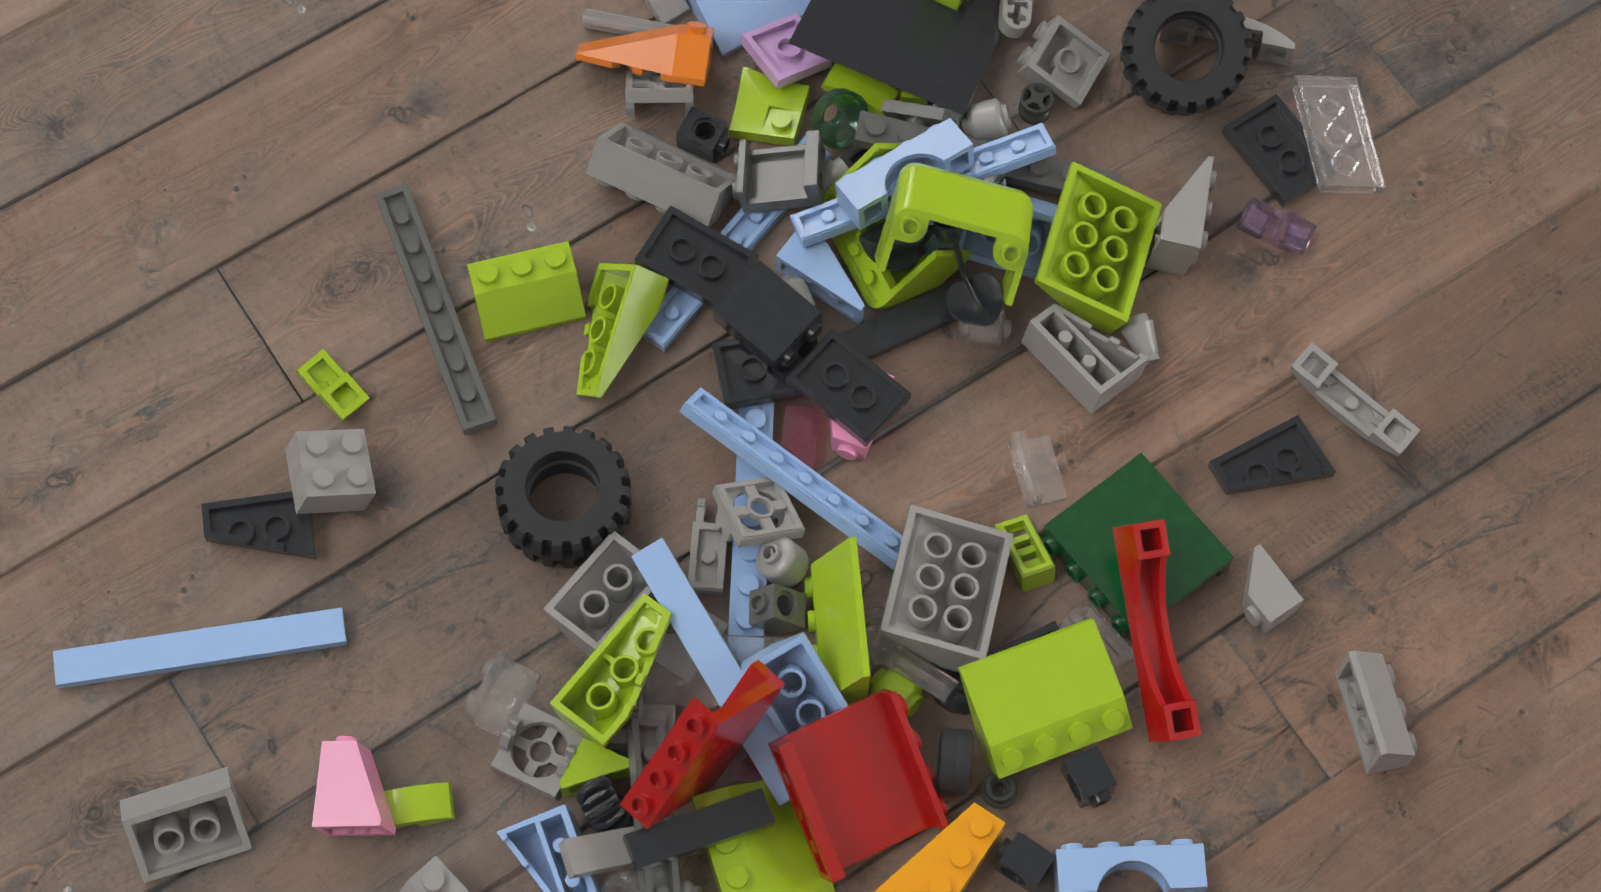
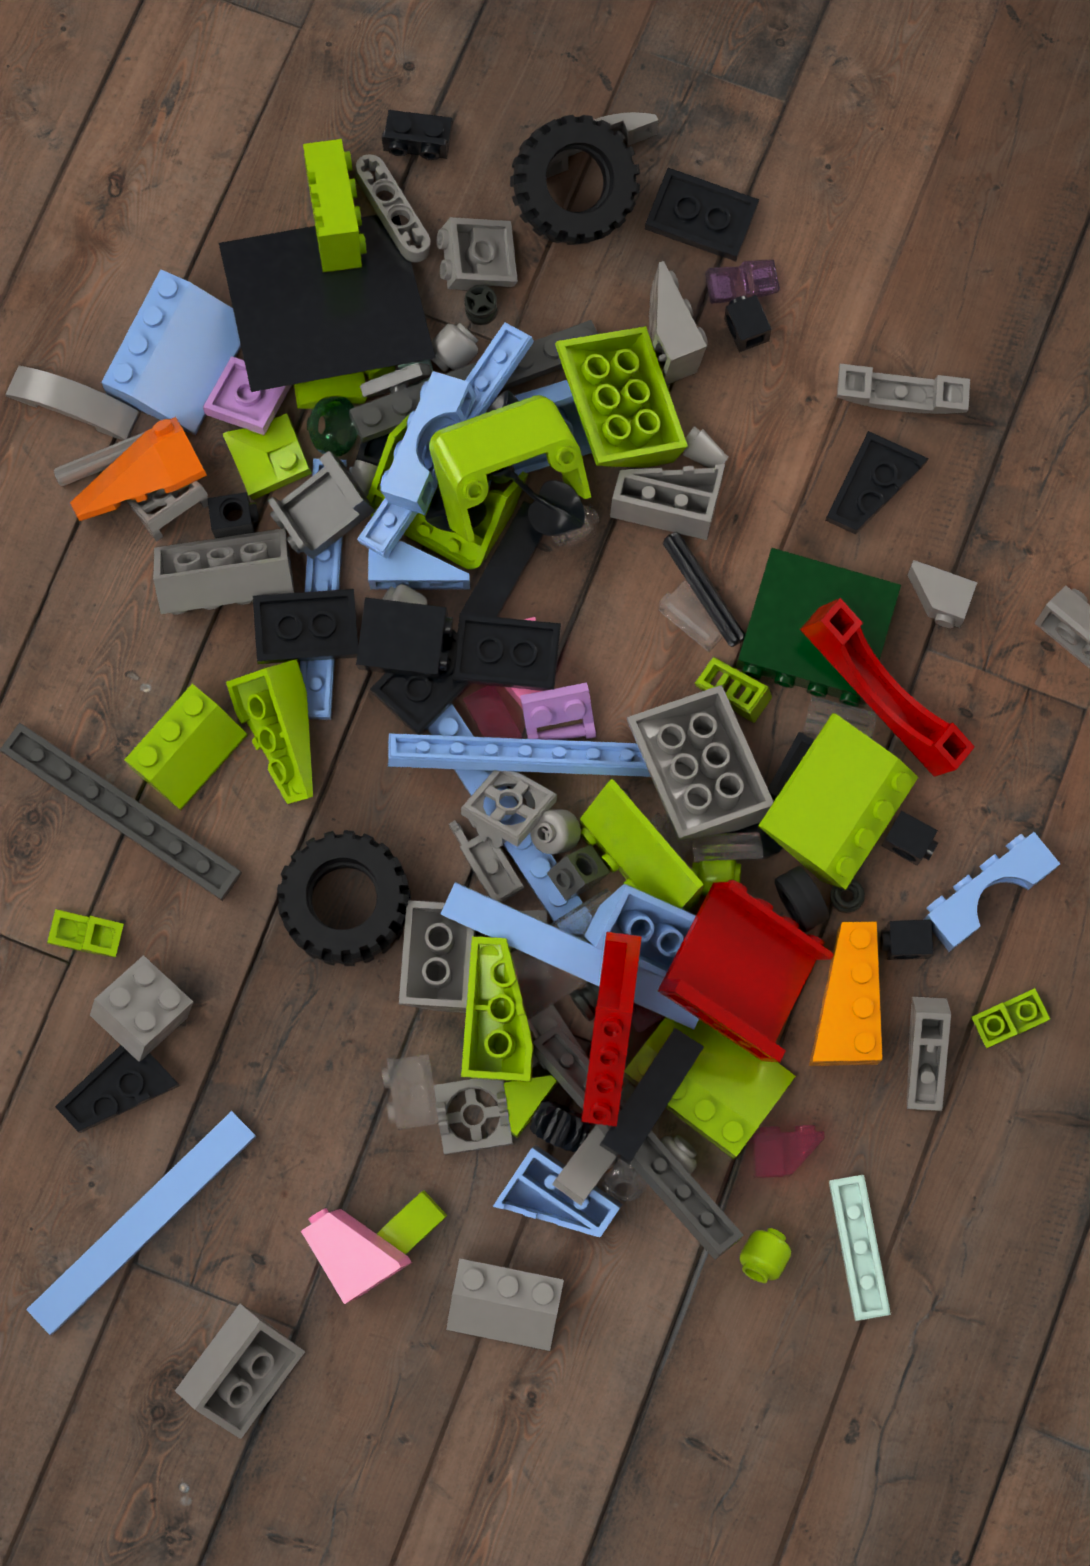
camera: 30 degrees left, 10 degrees up
(860, 462) = (558, 707): none -> lavender plate
(1058, 451) = (704, 589): none -> black axle
(1255, 261) = (747, 322): none -> black brick
(1338, 134) = (740, 169): clear tile -> none

